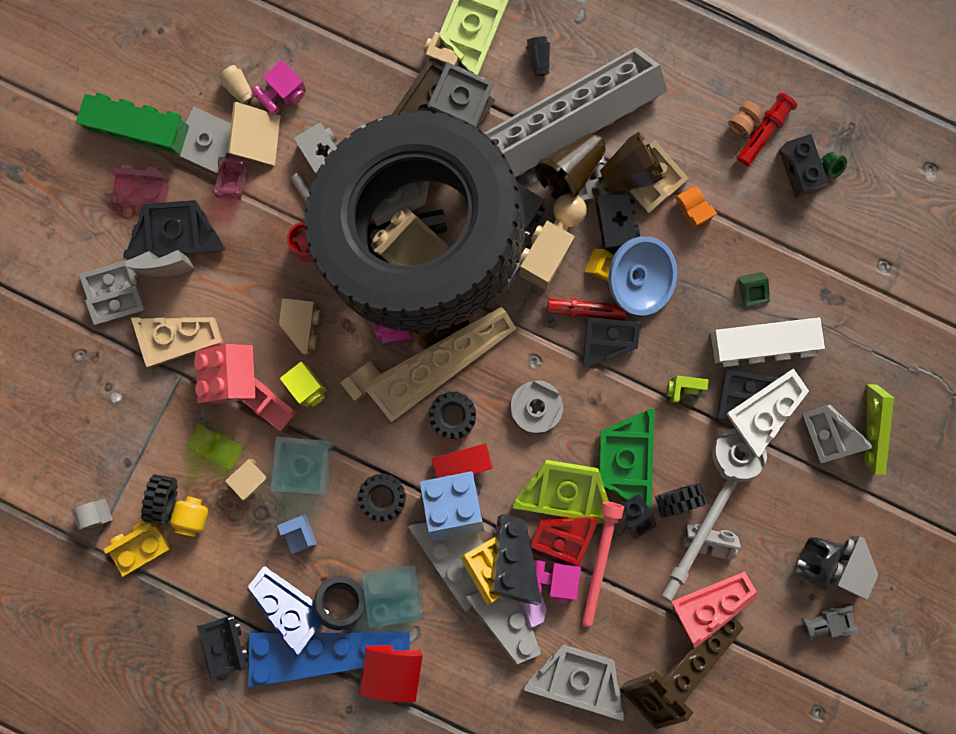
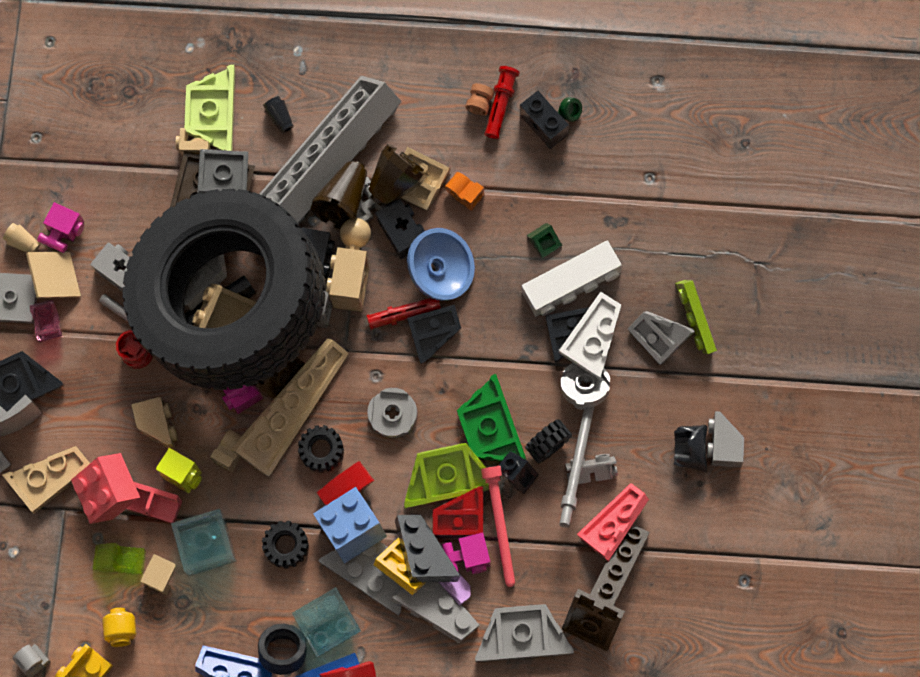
camera: 15 degrees left, 10 degrees down
(159, 499) = (87, 620): black tyre -> none
(297, 533) = (222, 605): medium blue panel -> none
(599, 264) = (399, 270): yellow slope -> none
(689, 384) = (519, 341): lime bracket -> none
(832, 622) = (726, 495): dark grey connector -> none

